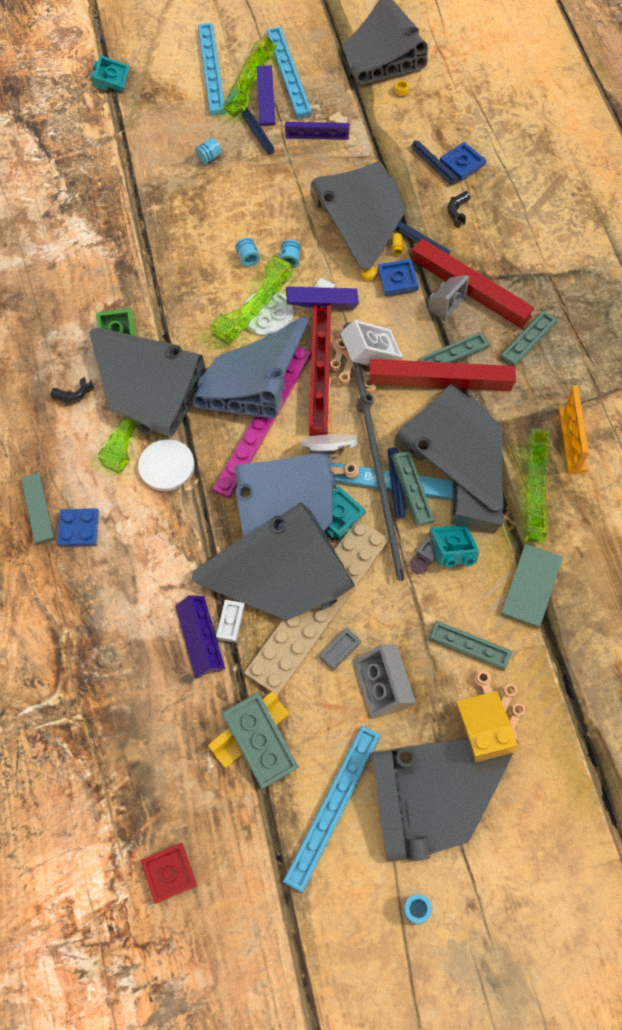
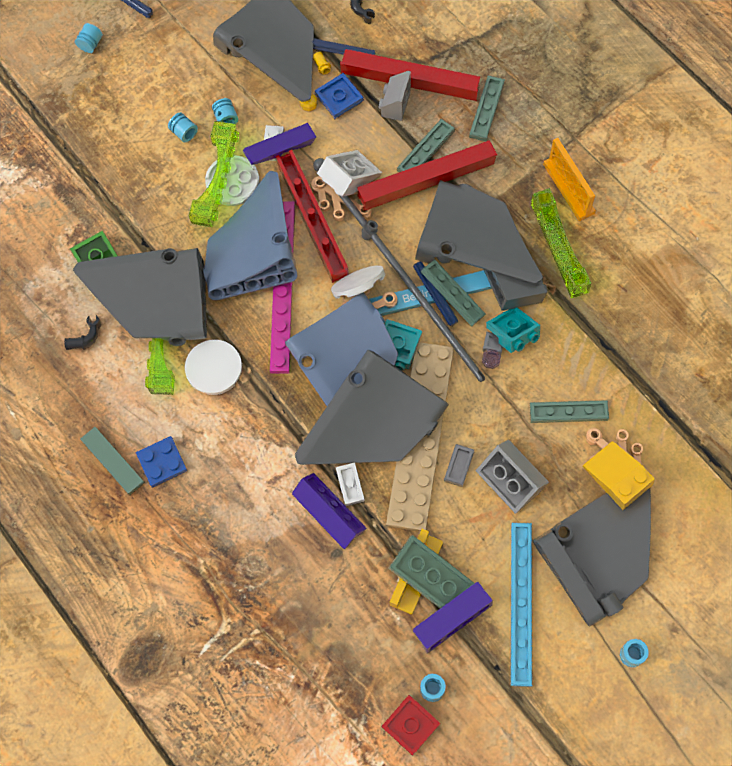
camera: 25 degrees left, 5 degrees up
(206, 847) = (432, 687): none -> medium azure piece
(259, 788) = (453, 617): none -> dark purple panel
(532, 586) = (596, 335): sand green tile -> none

